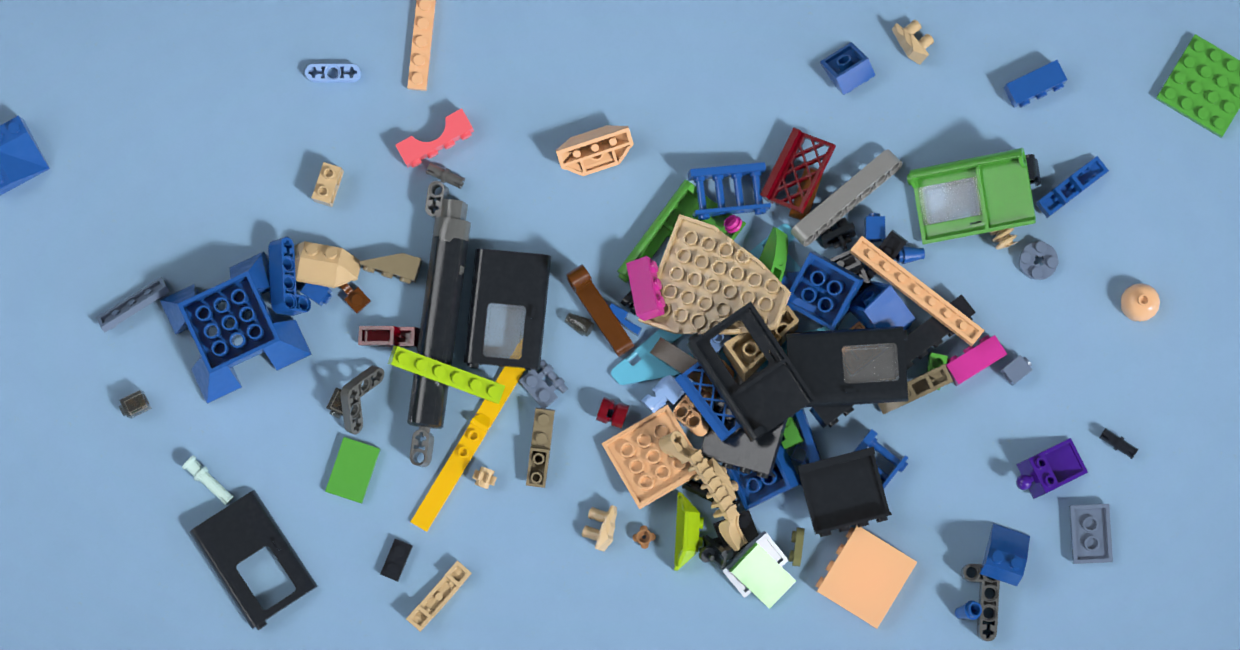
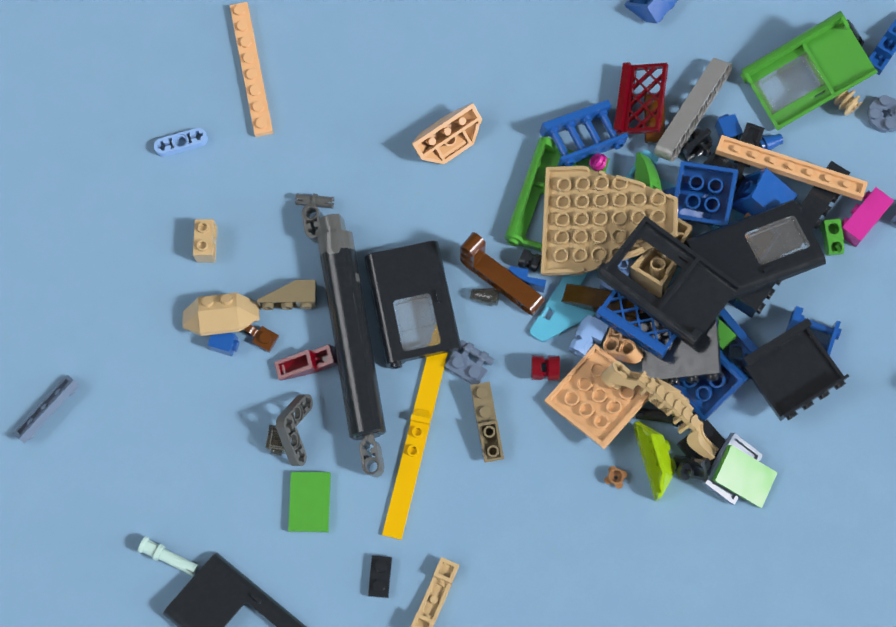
camera: 20 degrees left, 10 degrees down
(134, 404) = (73, 504): clear smoke brick -> none
(219, 354) = (144, 424): blue slope -> none
(283, 279) = (188, 339): blue beam -> none
(446, 374) = (350, 374): lime arch -> none
(456, 128) = (278, 187): coral arch -> none
(484, 477) = (441, 467): tan gear -> none
(605, 535) = (577, 487): tan connector -> none
(645, 288) = (539, 240): dark pink brick -> none
(796, 554) = (768, 445): olive plate -> none
(865, 576) = (842, 446): light nougat panel -> none
(921, 386) = (831, 248): dark tan slope -> none

